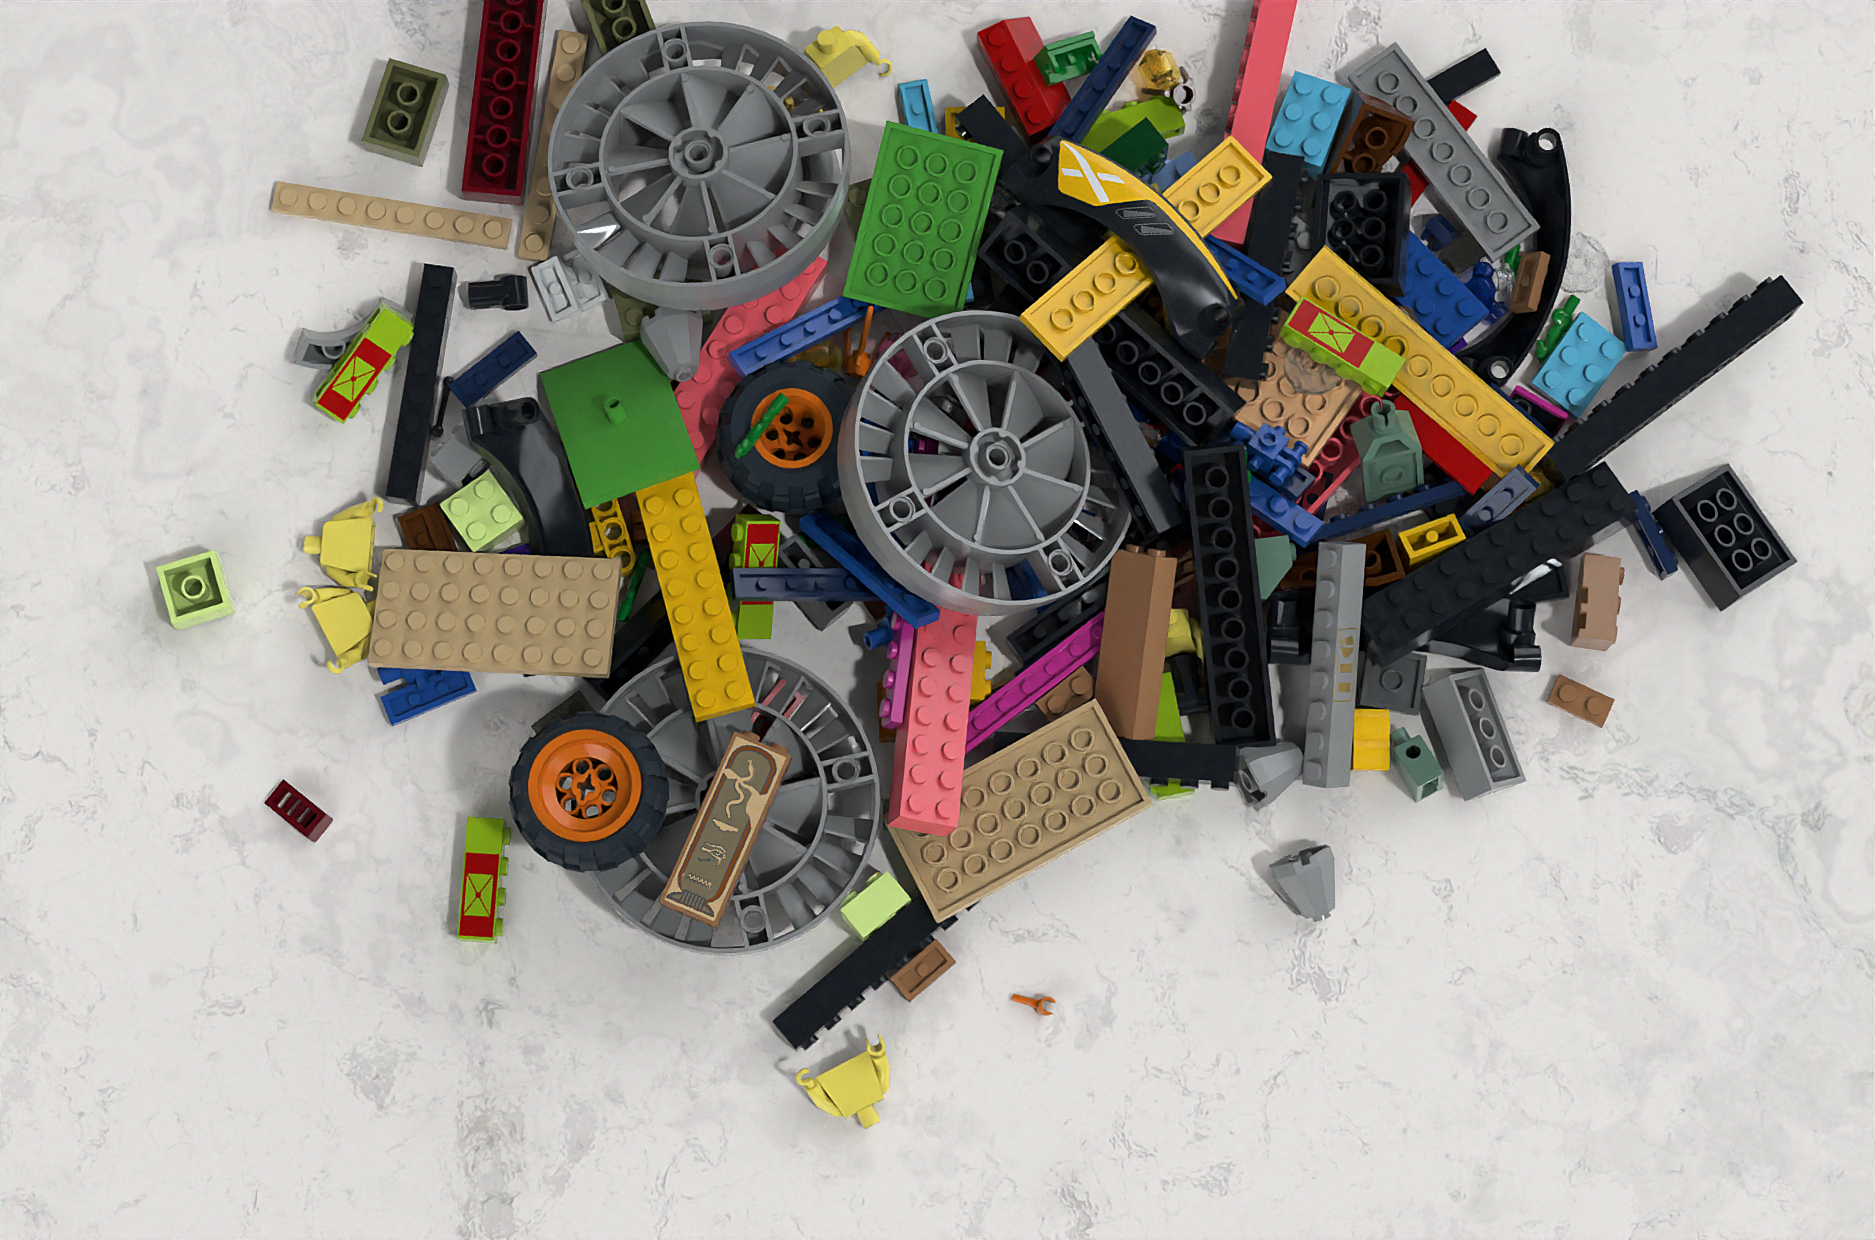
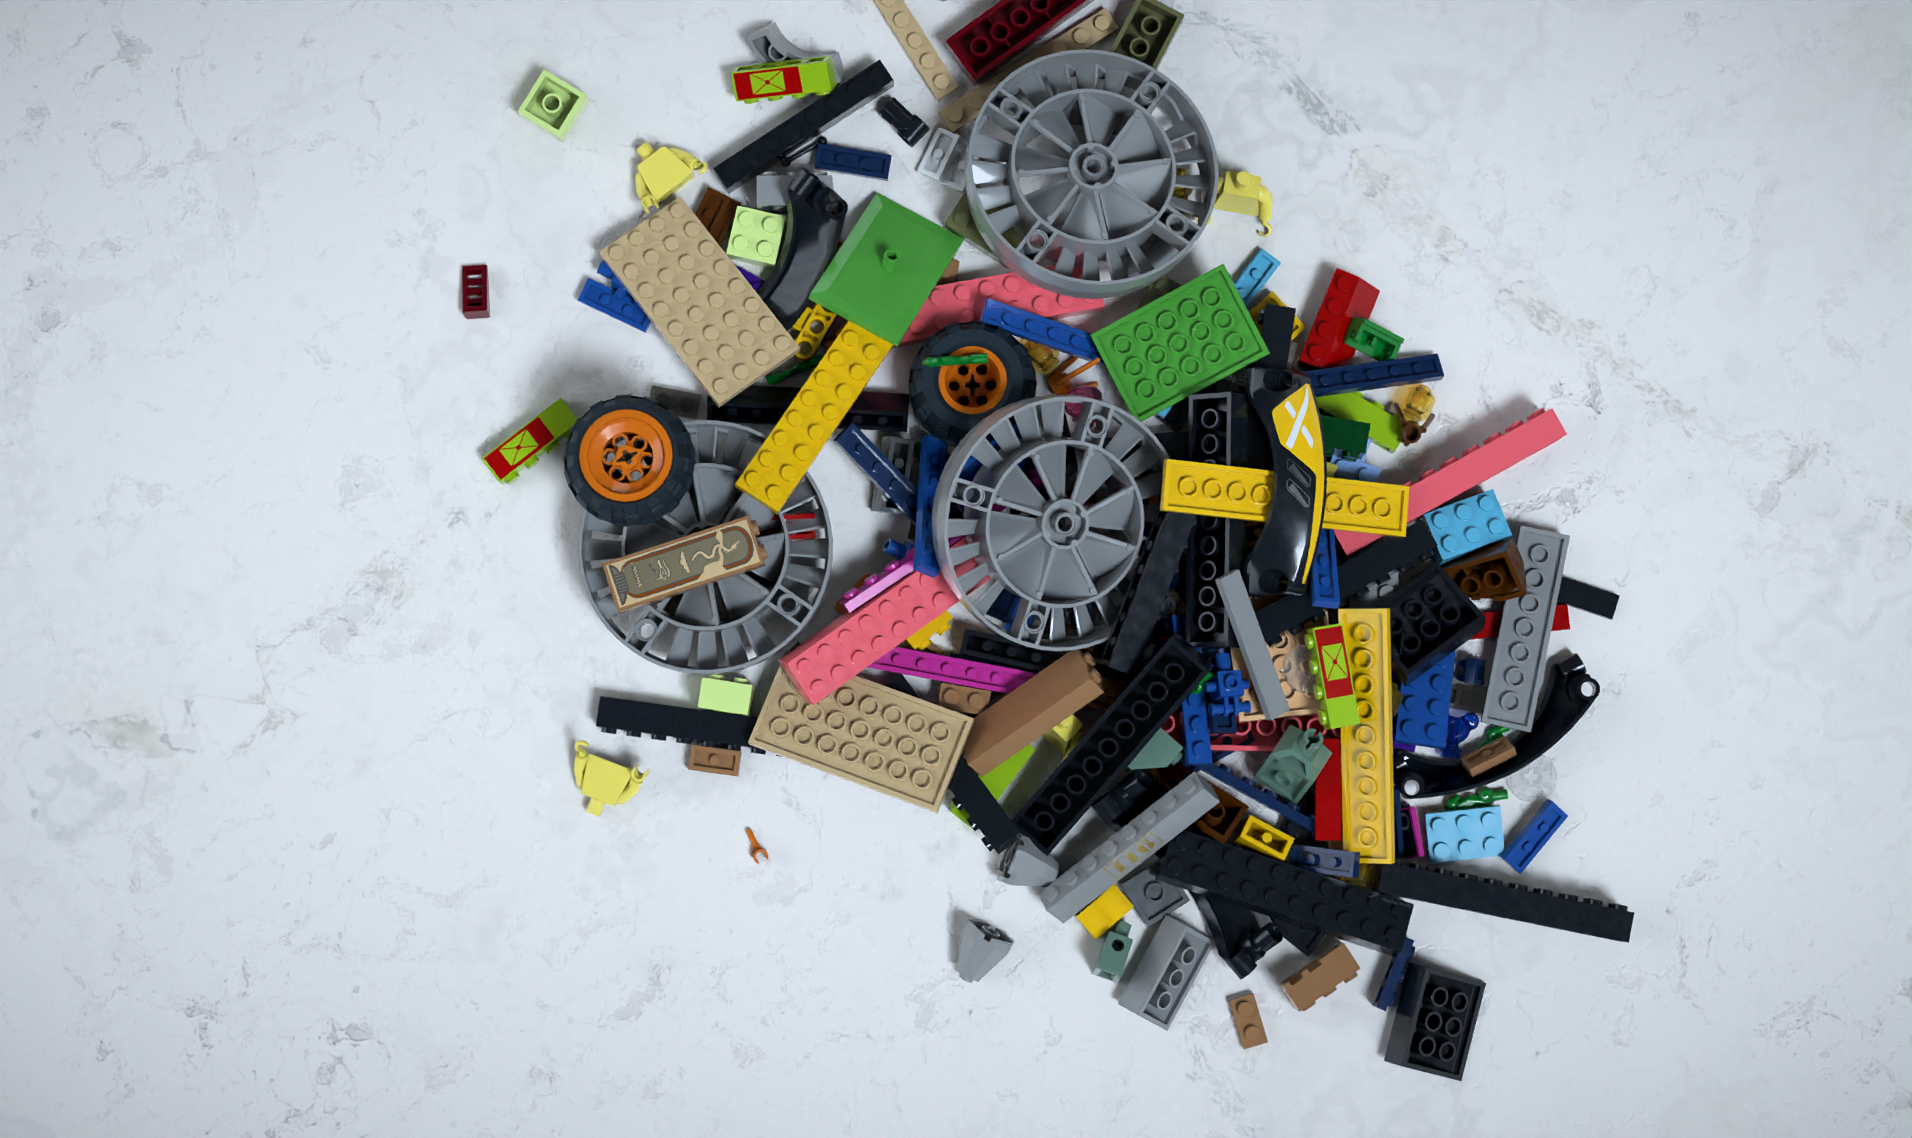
camera: 50 degrees right, 5 degrees up
(344, 621) = (615, 213): light yellow torso -> none
(674, 341) = (966, 258): light grey cone -> none
(754, 547) = (879, 425): lime brick -> none
(1188, 689) = (1035, 770): black piece -> none
(1251, 391) = (1252, 644): none -> light grey tile
(1503, 279) = (1477, 738): clear plate -> none

